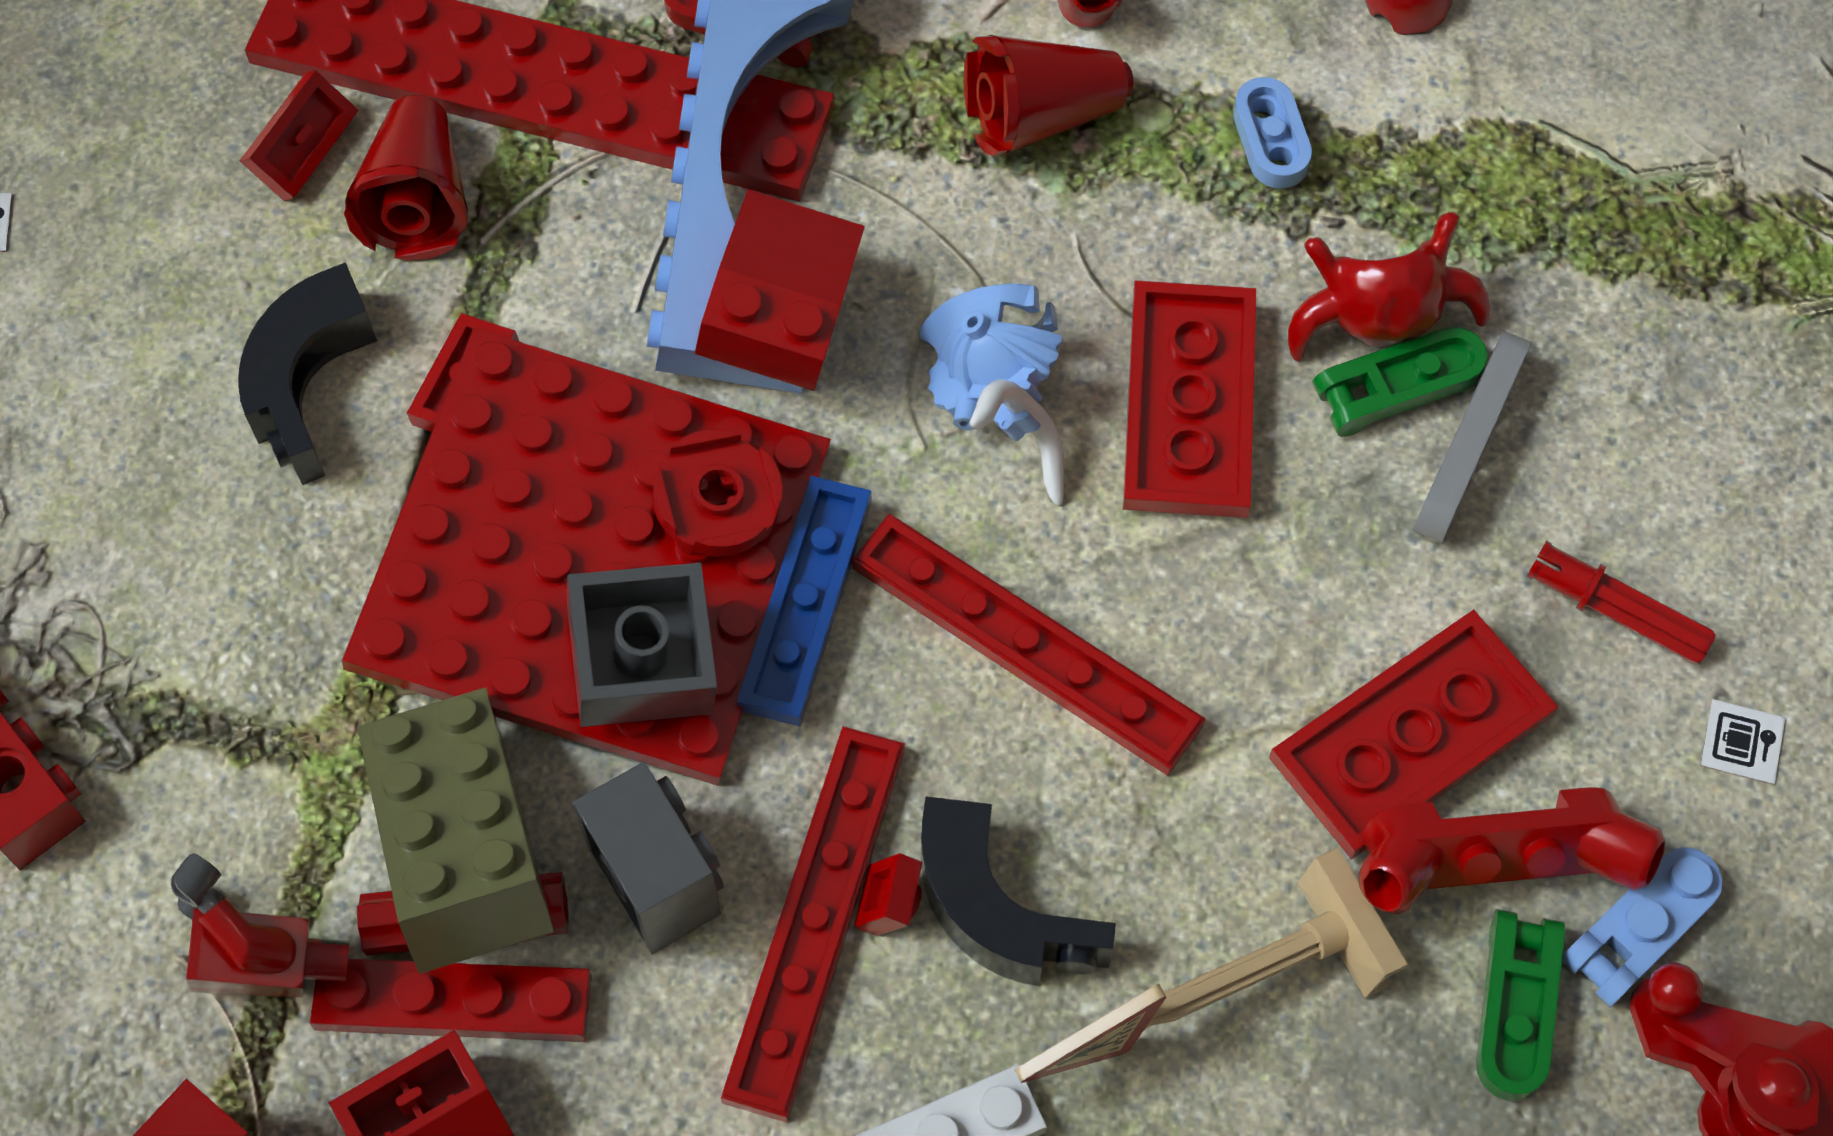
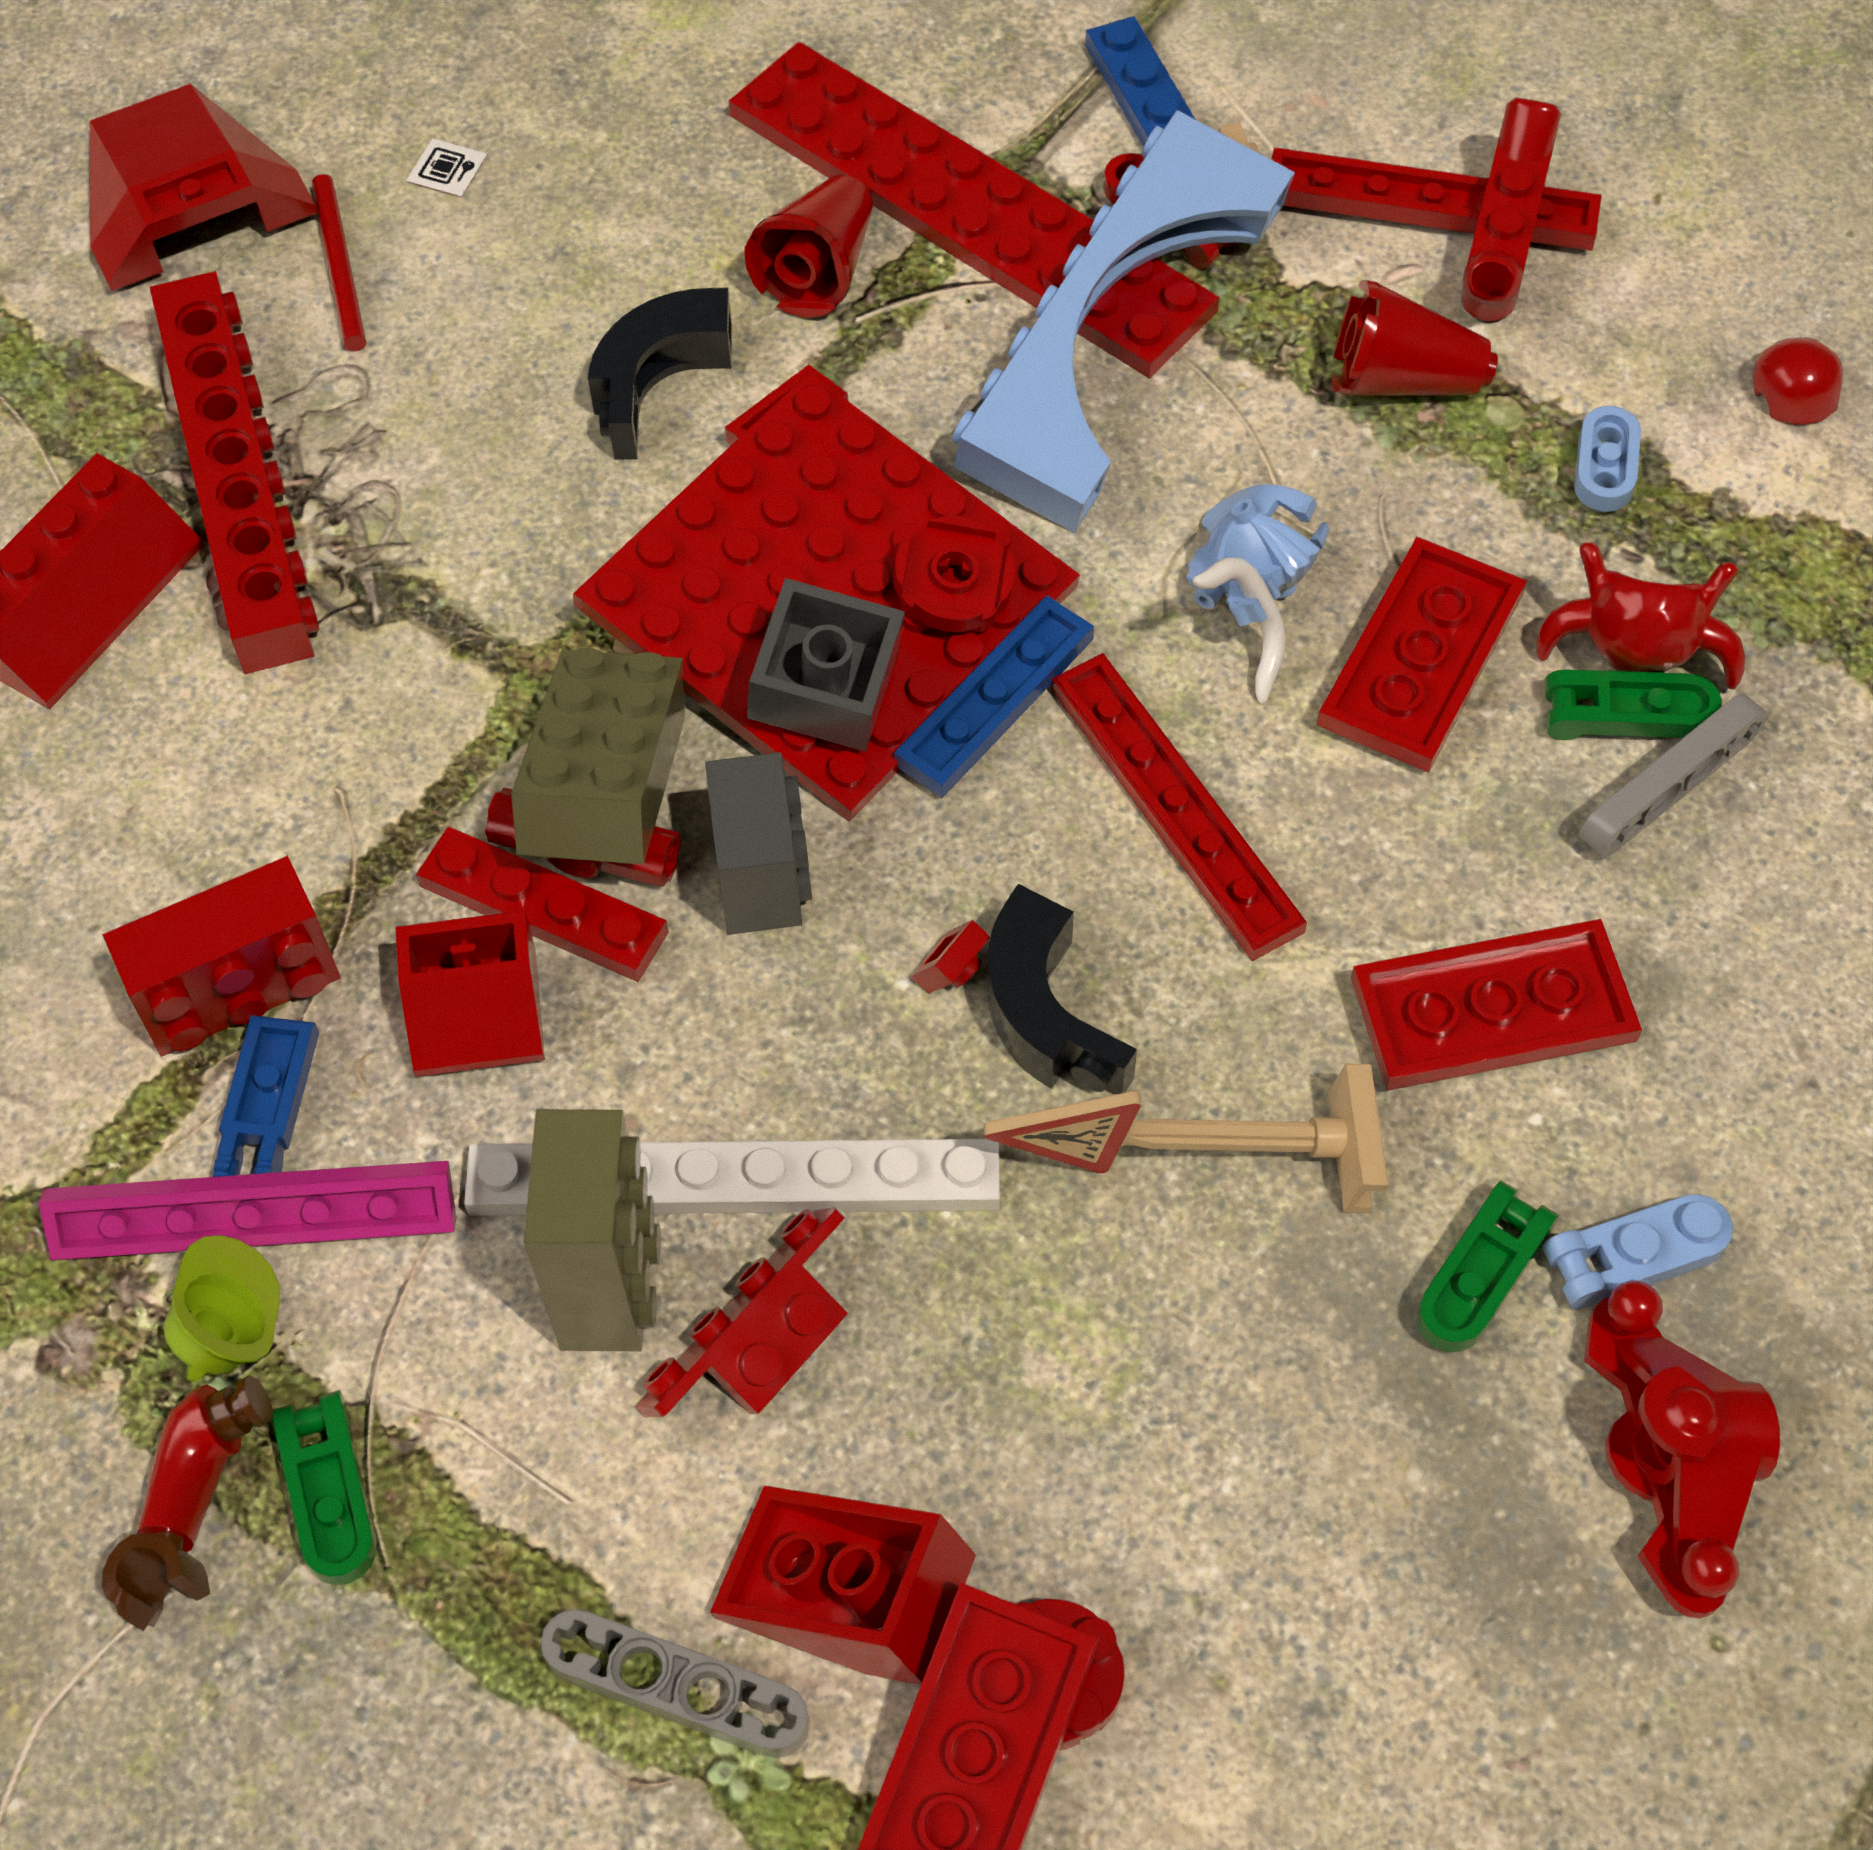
camera: 25 degrees right, 5 degrees down
(248, 950) = (387, 787): red torso -> none
(299, 135) = (741, 181): red plate -> none
(779, 290) = (1082, 427): red slope -> none
(813, 925) = (876, 961): red tile -> none
(1582, 835) = (1605, 1144): red plate -> none
(1622, 603) = (1749, 968): red axle -> none
(1743, 741) = (1814, 1133): white sticker -> none

